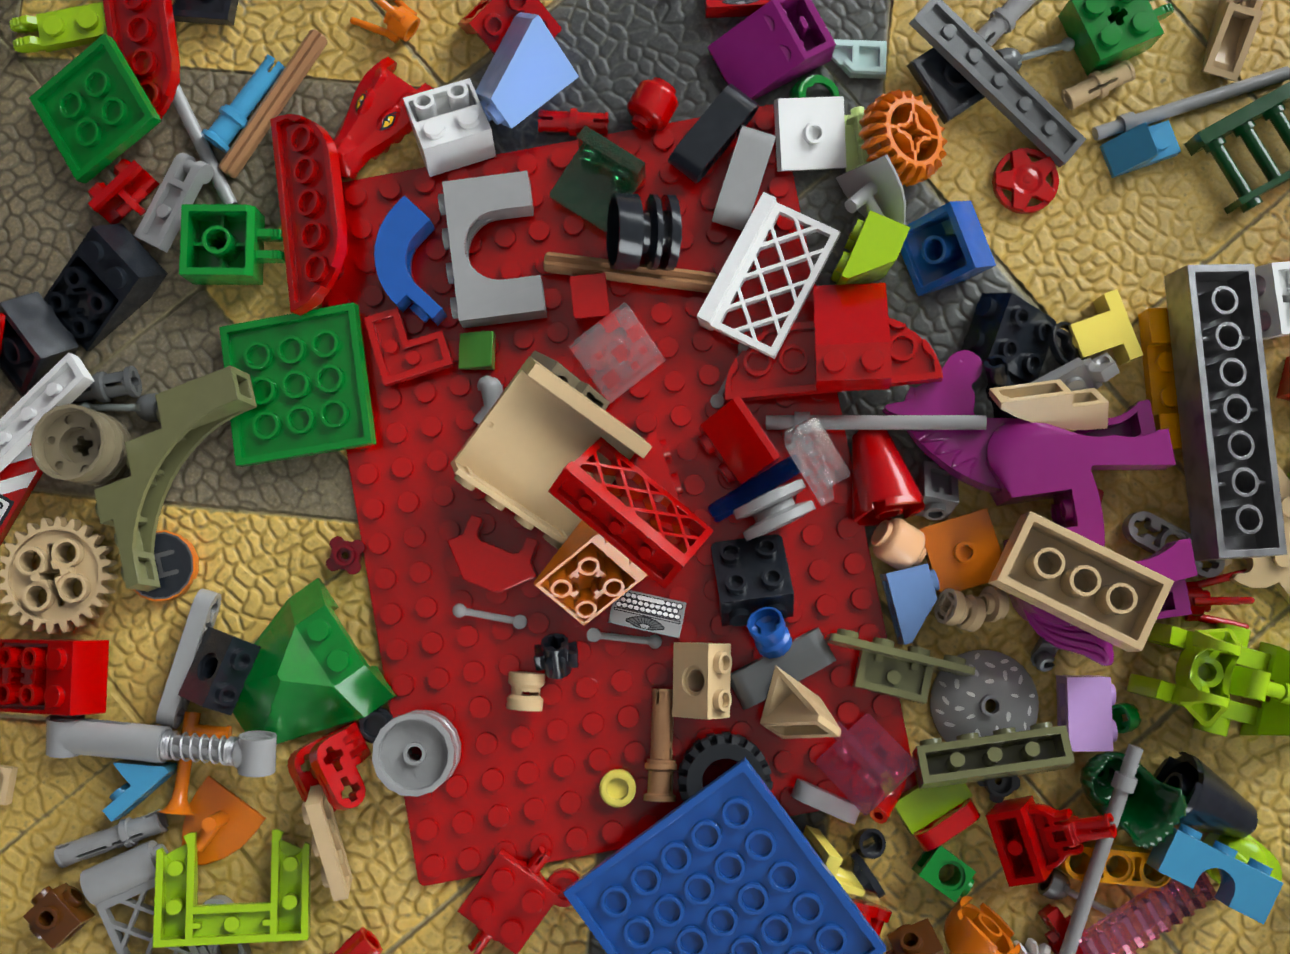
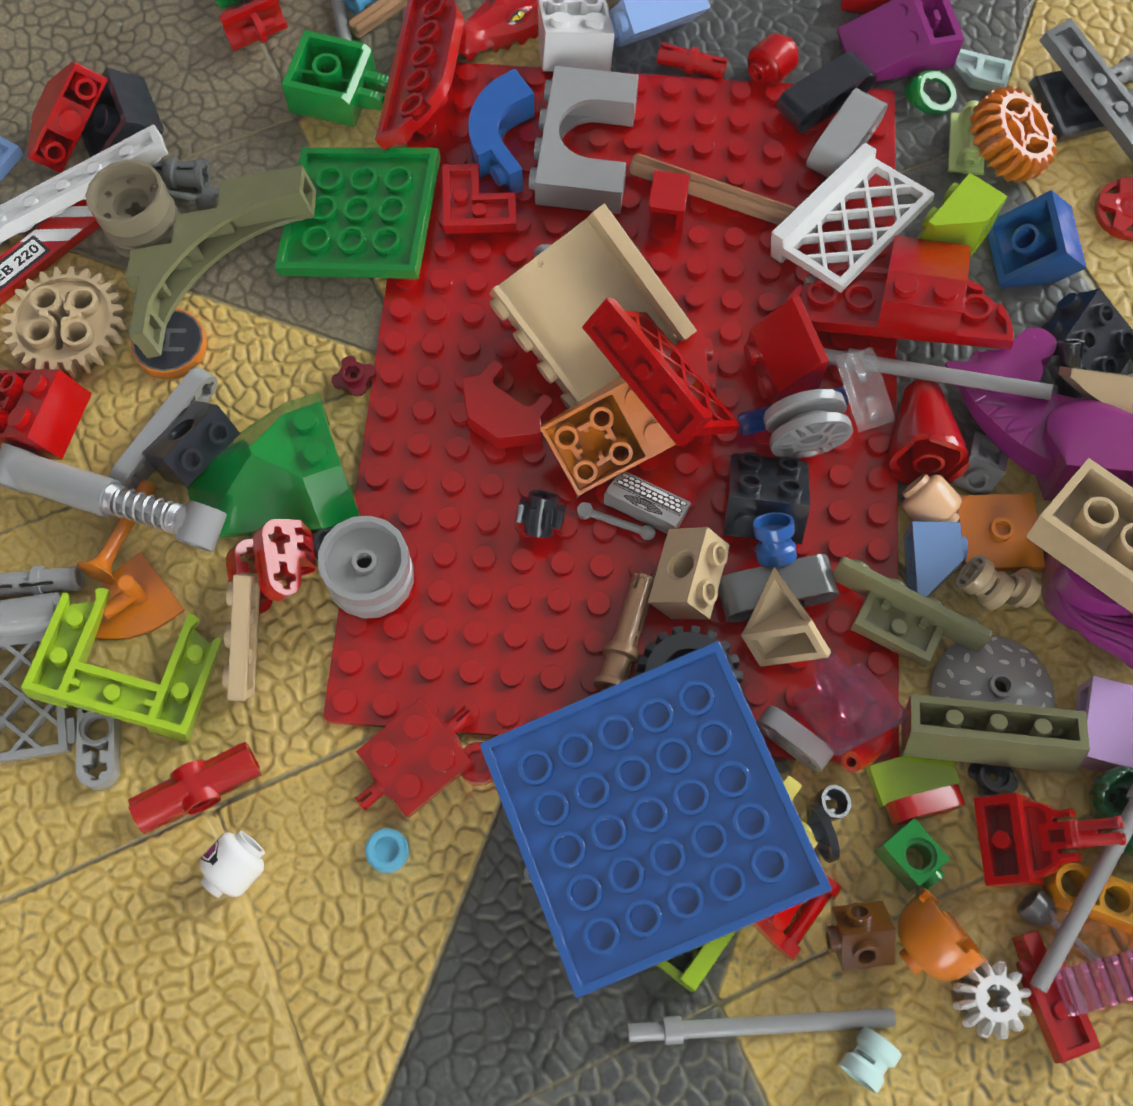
camera: 15 degrees right, 15 degrees down
(103, 284) = (207, 89): black slope -> none
(142, 781) = (76, 535): dark azure slope -> none
(164, 212) = (278, 52): light grey plate -> none
(460, 610) = (510, 478): light grey hinge -> none
(477, 350) = (544, 222): bright green slope -> none
(525, 682) = (498, 541): tan wheel -> none
(594, 175) = (707, 103): clear green bracket -> none
(616, 352) = (683, 249): clear tile -> none
(617, 788) = (567, 668): light yellow tile -> none
(649, 232) = (742, 147): black wheel -> none
(810, 133) = (921, 115): white plate -> none
(874, 188) = (981, 159): light grey shield -> none
(1043, 655) = (1074, 651): dark grey arm -> none

